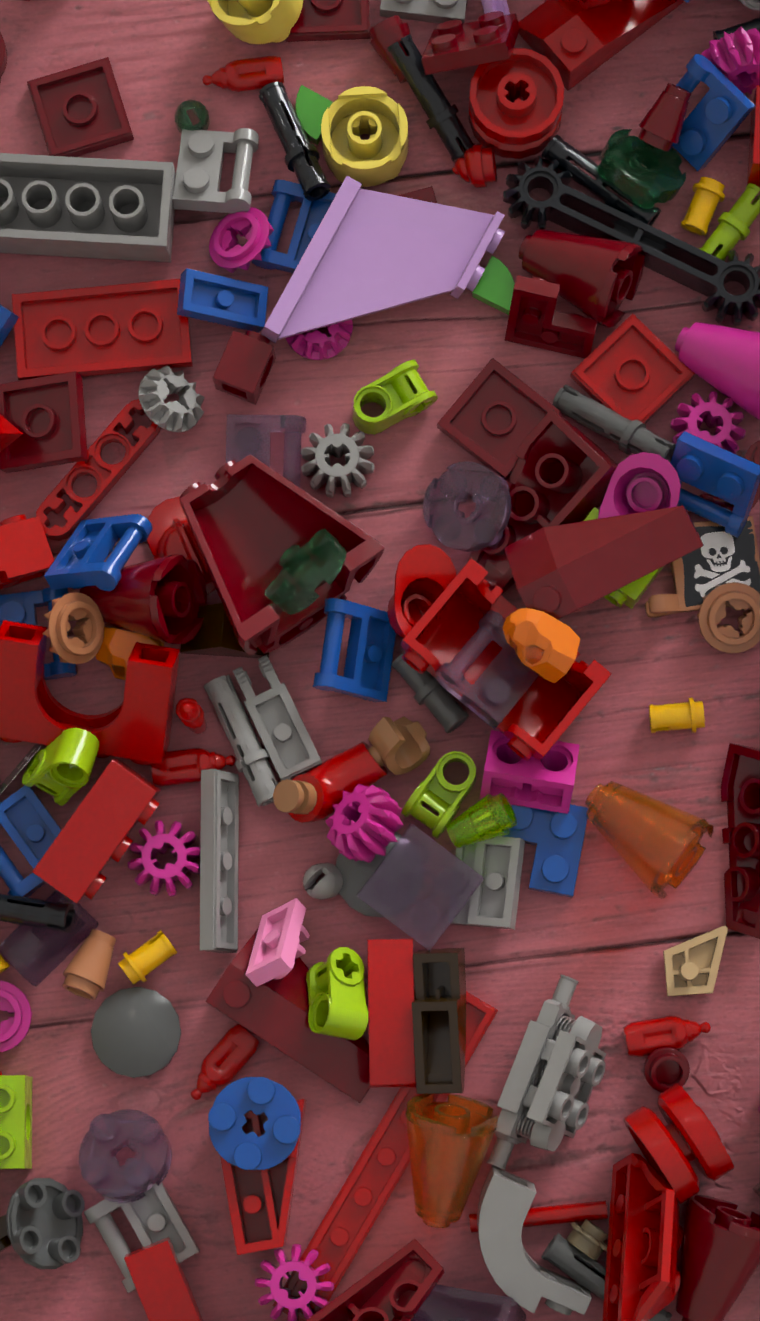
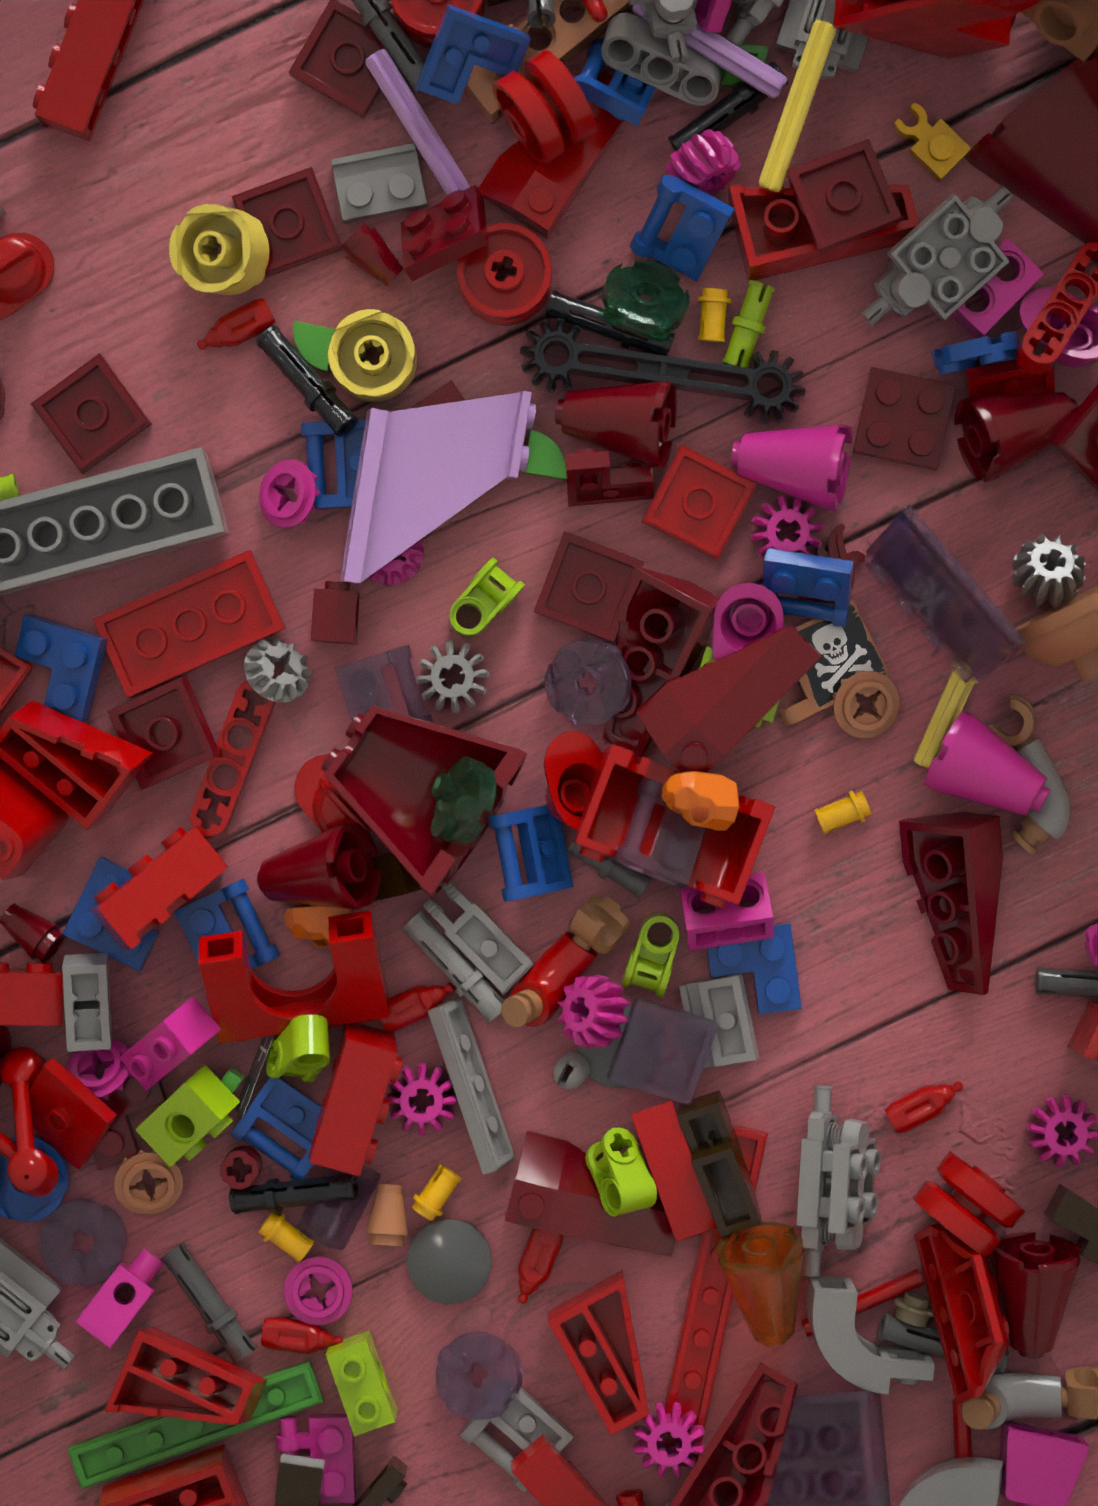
camera: 20 degrees left, 10 degrees up
(45, 1223) = (428, 1459): dark grey dish -> none
(84, 553) = (251, 842): blue plate -> none
(88, 628) = (279, 920): nougat gear -> none
(182, 118) = (193, 392): clear green hinge -> none
(191, 715) = (400, 963): red piece -> none
(201, 170) = (227, 434): light grey plate -> none
(222, 300) = (293, 560): blue plate -> none
(277, 943) = (551, 1145): bright pink plate -> none
(281, 1128) = (588, 1343): blue plate -> none
(431, 97) = (423, 296): black pin -> none
(477, 166) = (488, 347): red plate -> none
(483, 821) = (700, 972): clear neon green cone -> none
(628, 434) = (716, 565): dark grey pin -> none
(648, 834) = (851, 932): clear orange cone -> none
(665, 119) = (652, 247): dark red cone -> none
(666, 1068) = (935, 1136): dark red plate -> none
(694, 964) = (930, 1032): tan piece -> none

